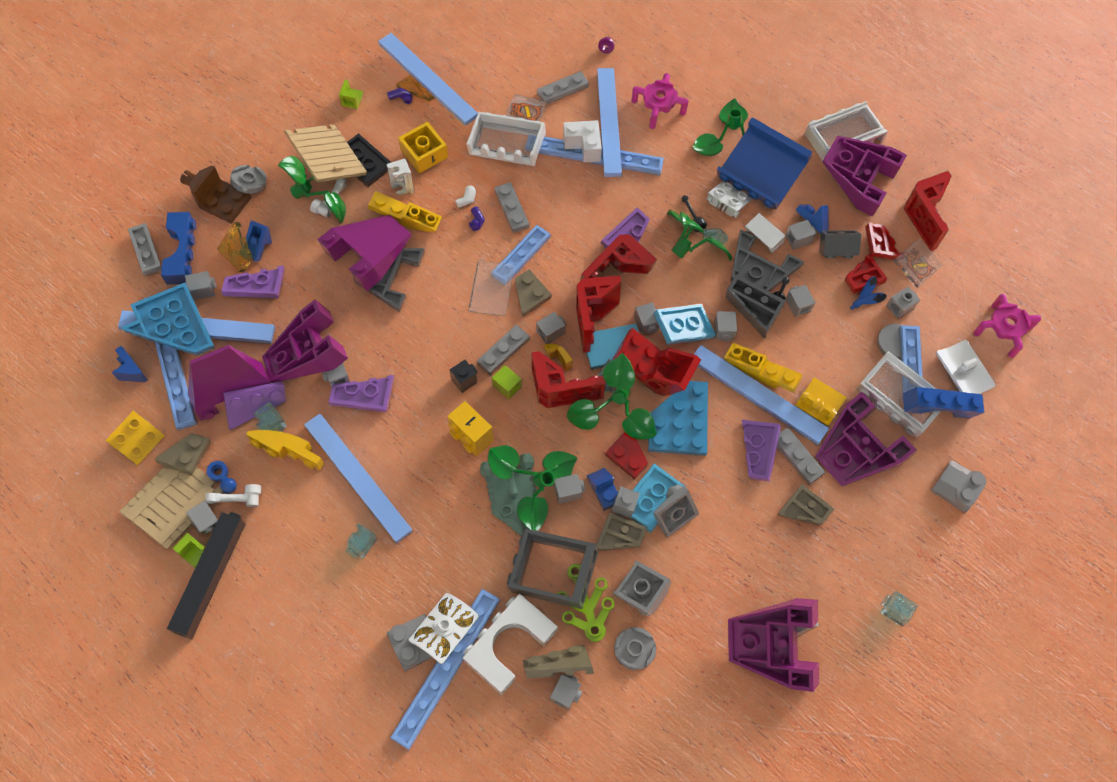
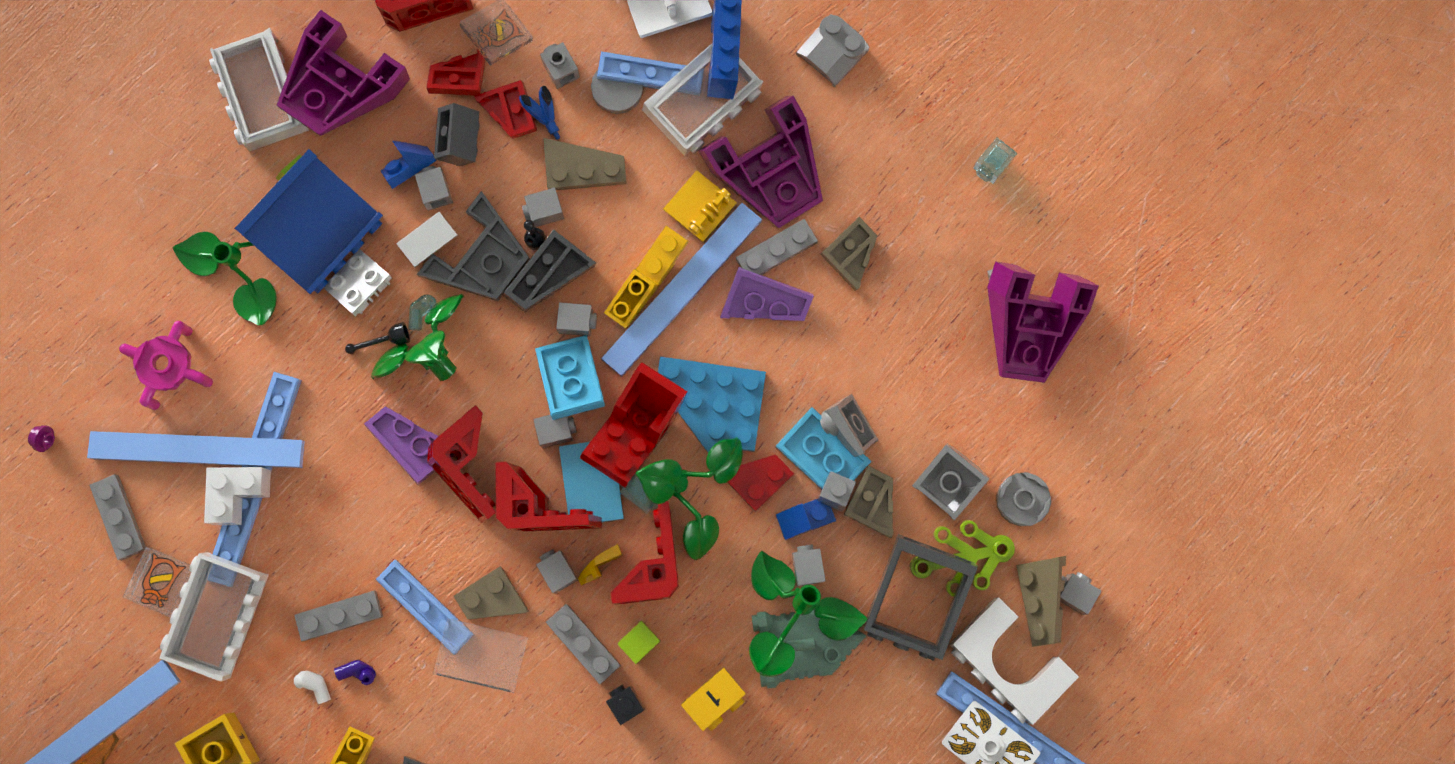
camera: 85 degrees left, 15 degrees up
(833, 323) = (581, 167): none -> dark tan wing

